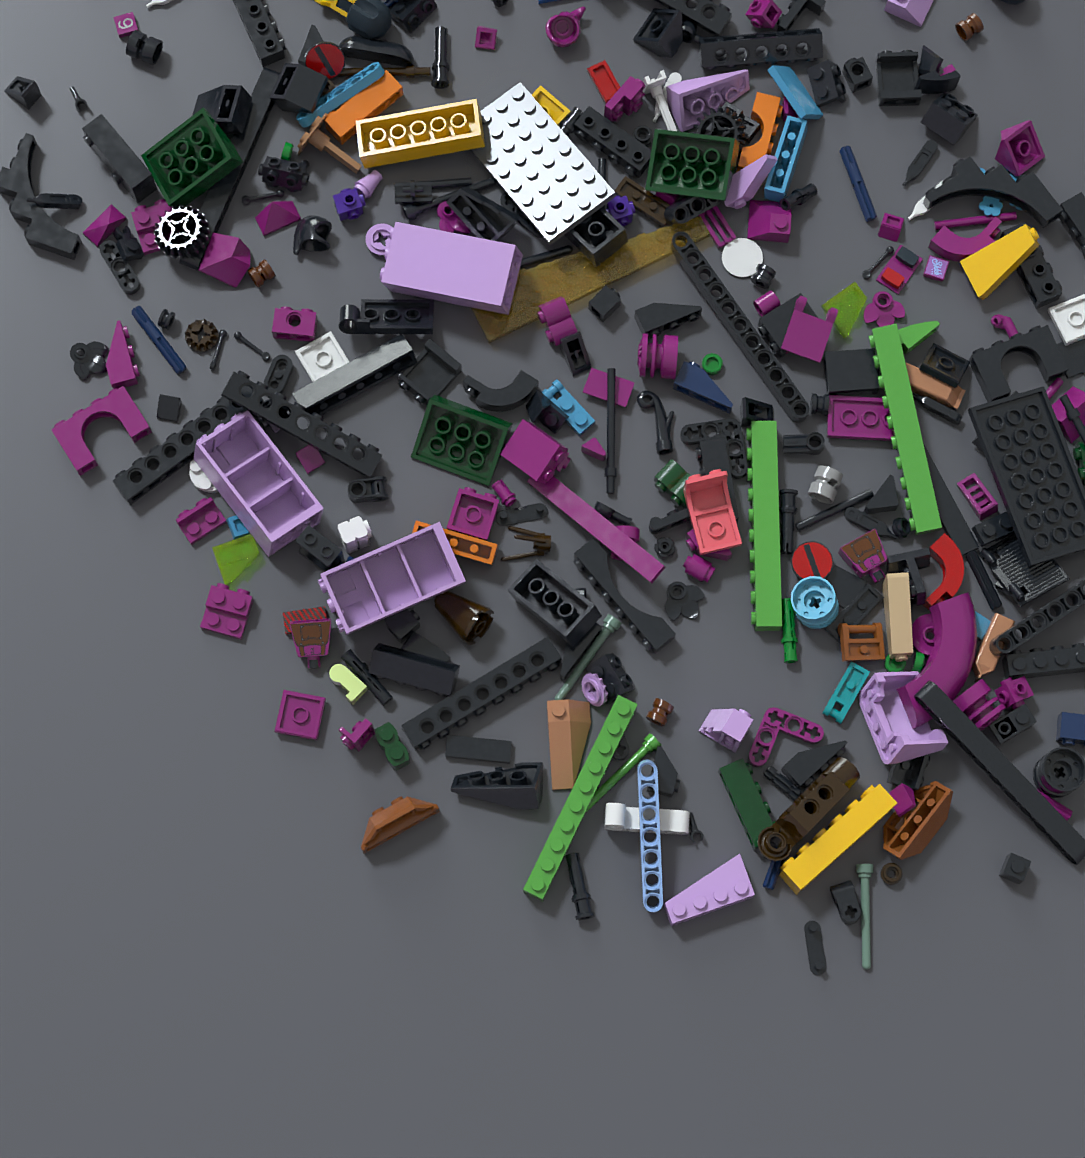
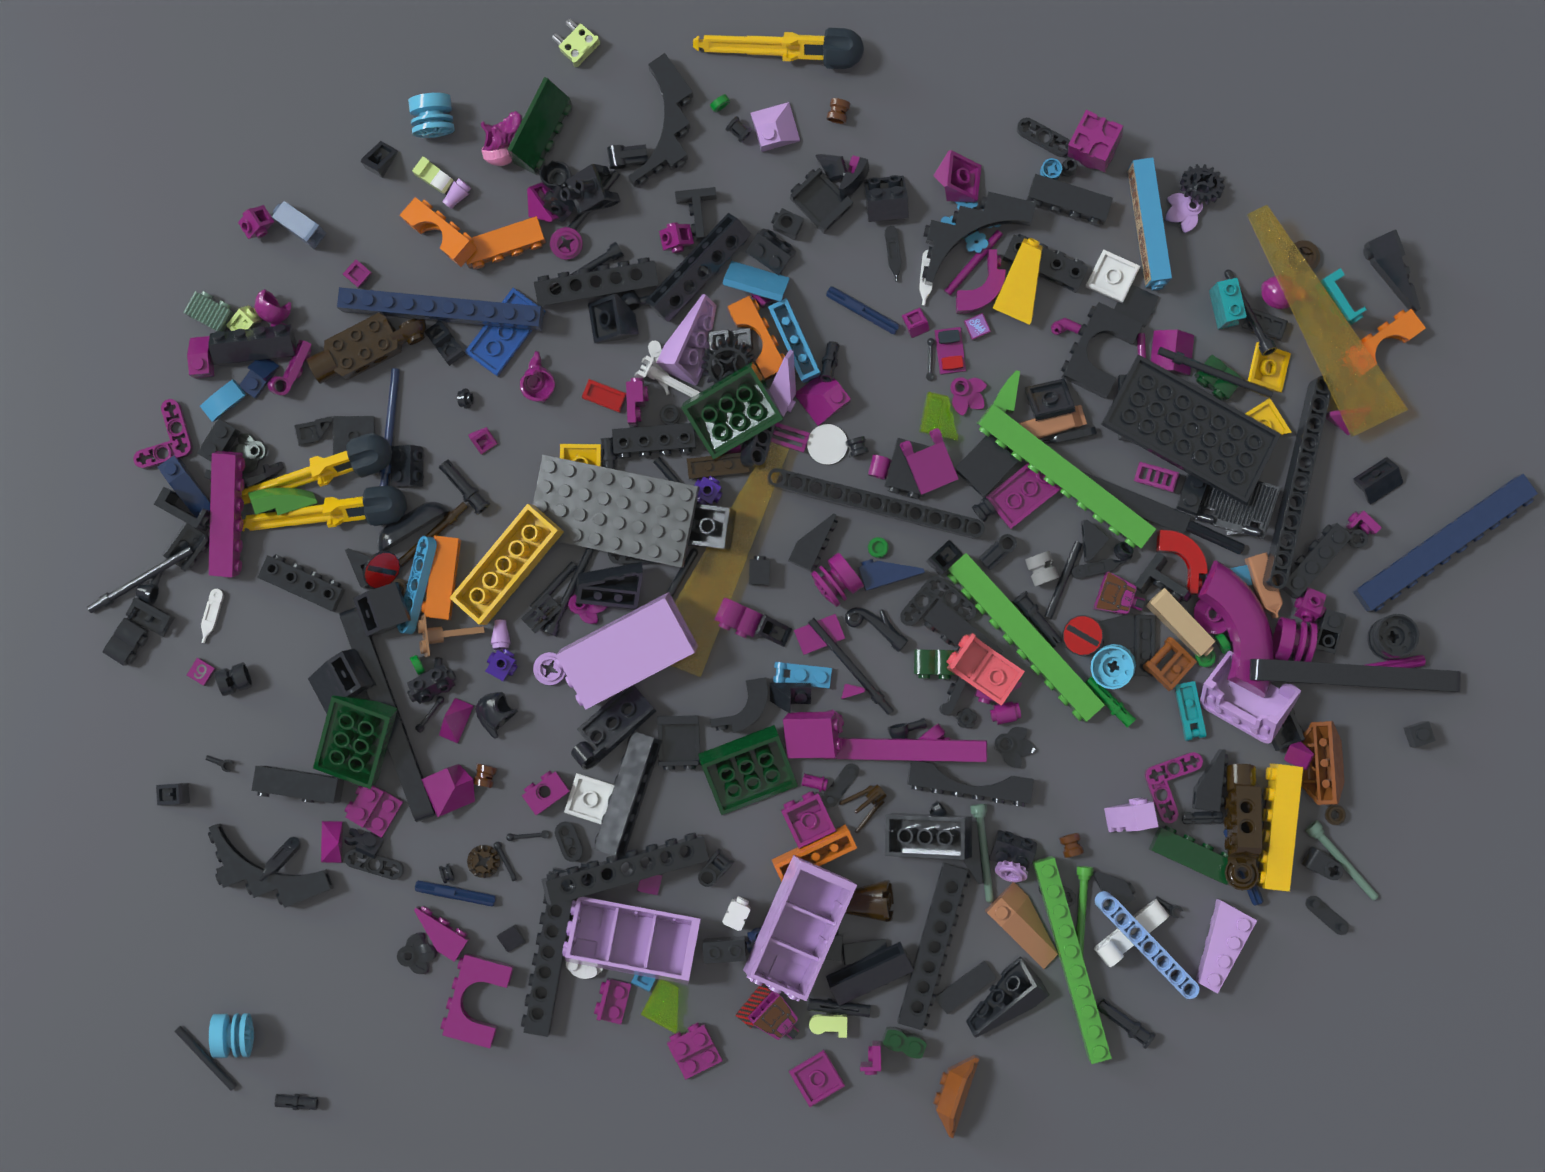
camera: 40 degrees left, 10 degrees up
(183, 221) = (399, 793): black gear -> none

